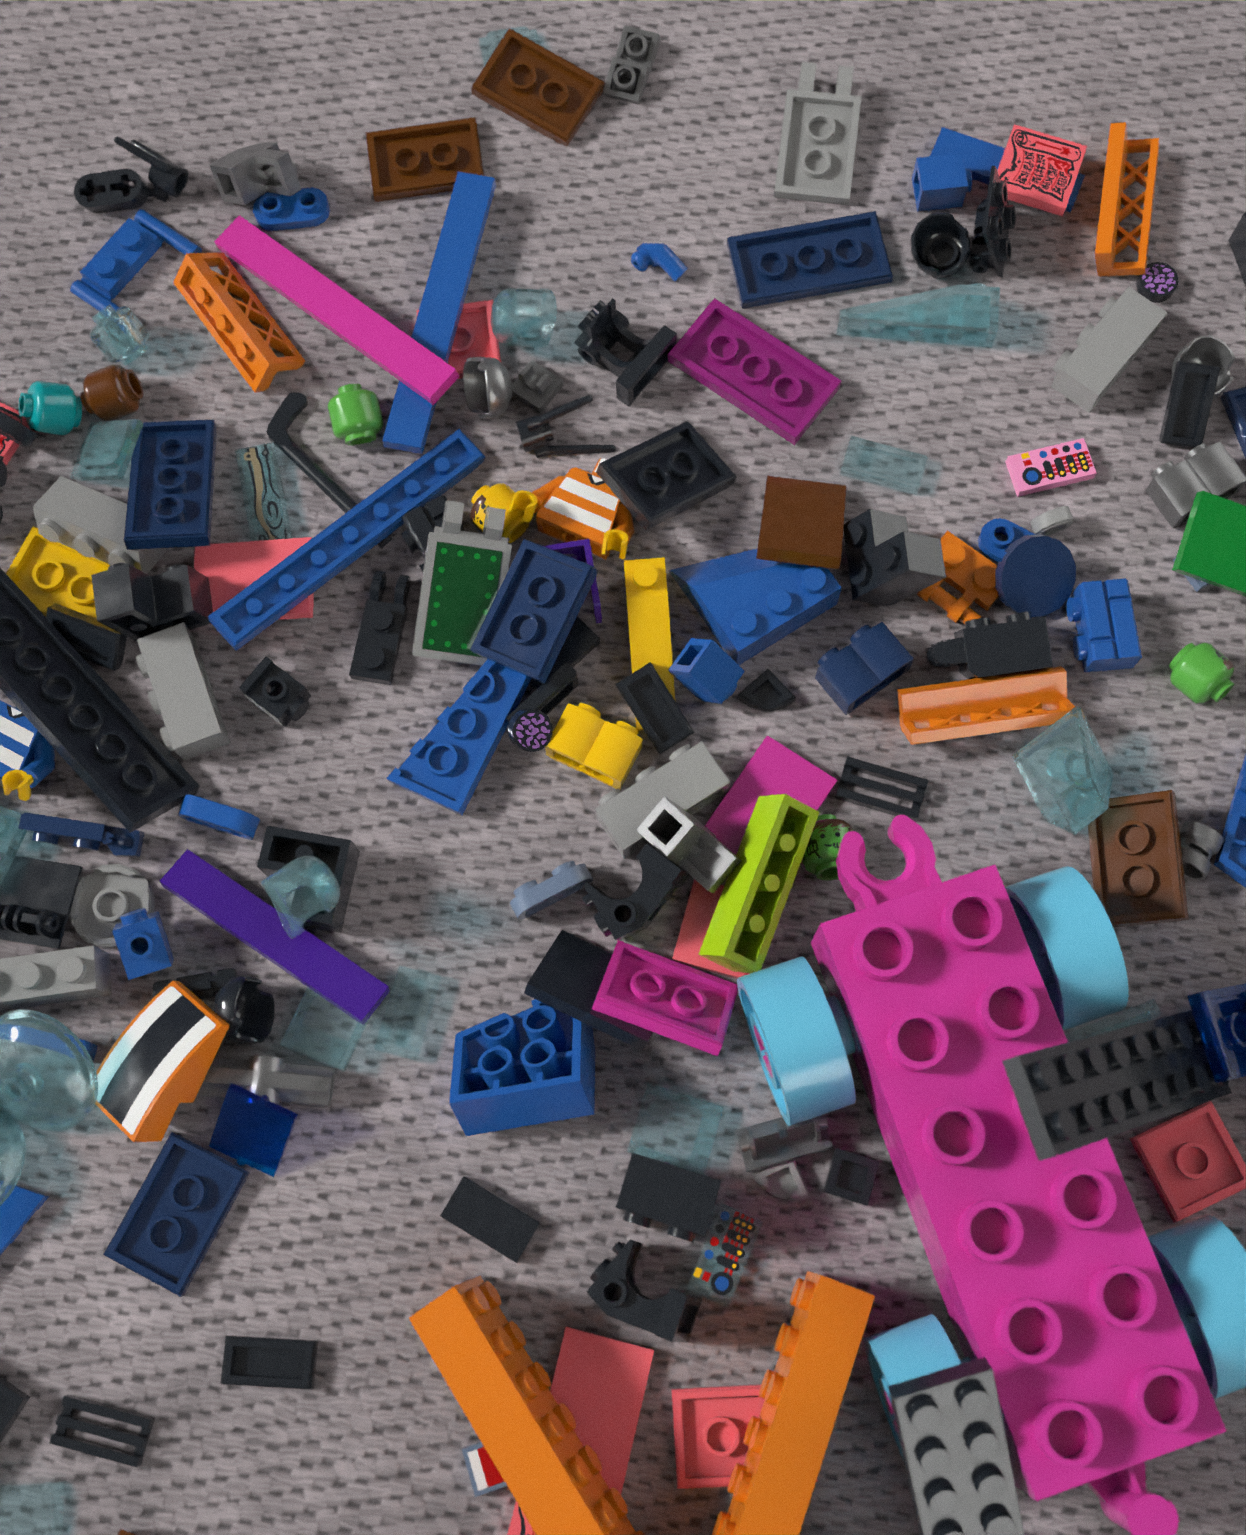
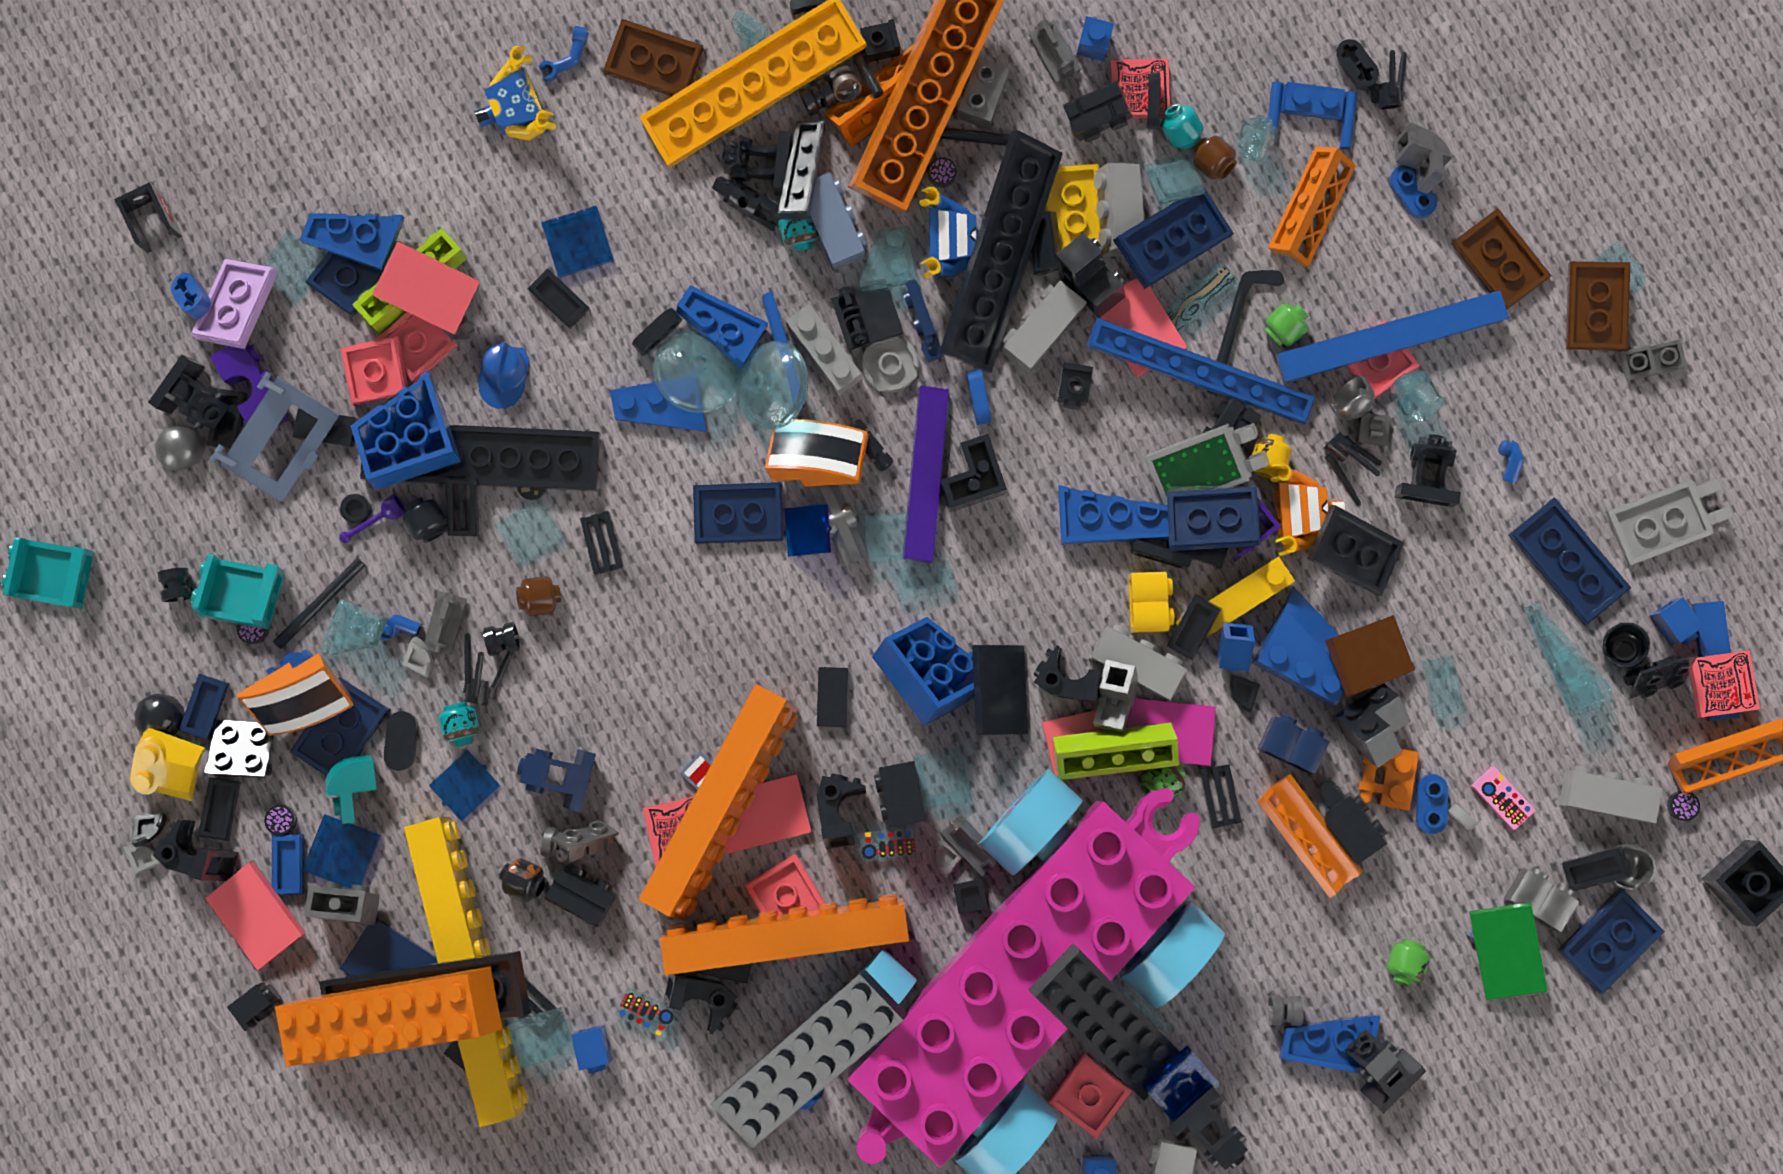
camera: 55 degrees right, 10 degrees up
(142, 943) = (878, 399): blue brick -> none
(245, 1009) = (873, 484): black hair -> none
(269, 1362) = (687, 615): black tile -> none
(302, 879) = (960, 480): clear light blue helmet -> none
(337, 310) = (1353, 267): dark pink tile -> none
(380, 632) = (1150, 425): black hinge -> none
(530, 730) = (1135, 558): black tile -> none
(535, 897) = (1054, 631): sand blue plate -> none
(666, 998) = (1016, 731): dark pink tile -> none
(754, 371) = (1464, 567): magenta plate -> none
(1035, 575) = (1416, 824): dark blue tile -> none
(1067, 772) = (1292, 907): clear light blue slope -> none
(1104, 625) = (1406, 885): blue brick -> none
(1139, 860) = (1259, 976): reddish brown tile -> none

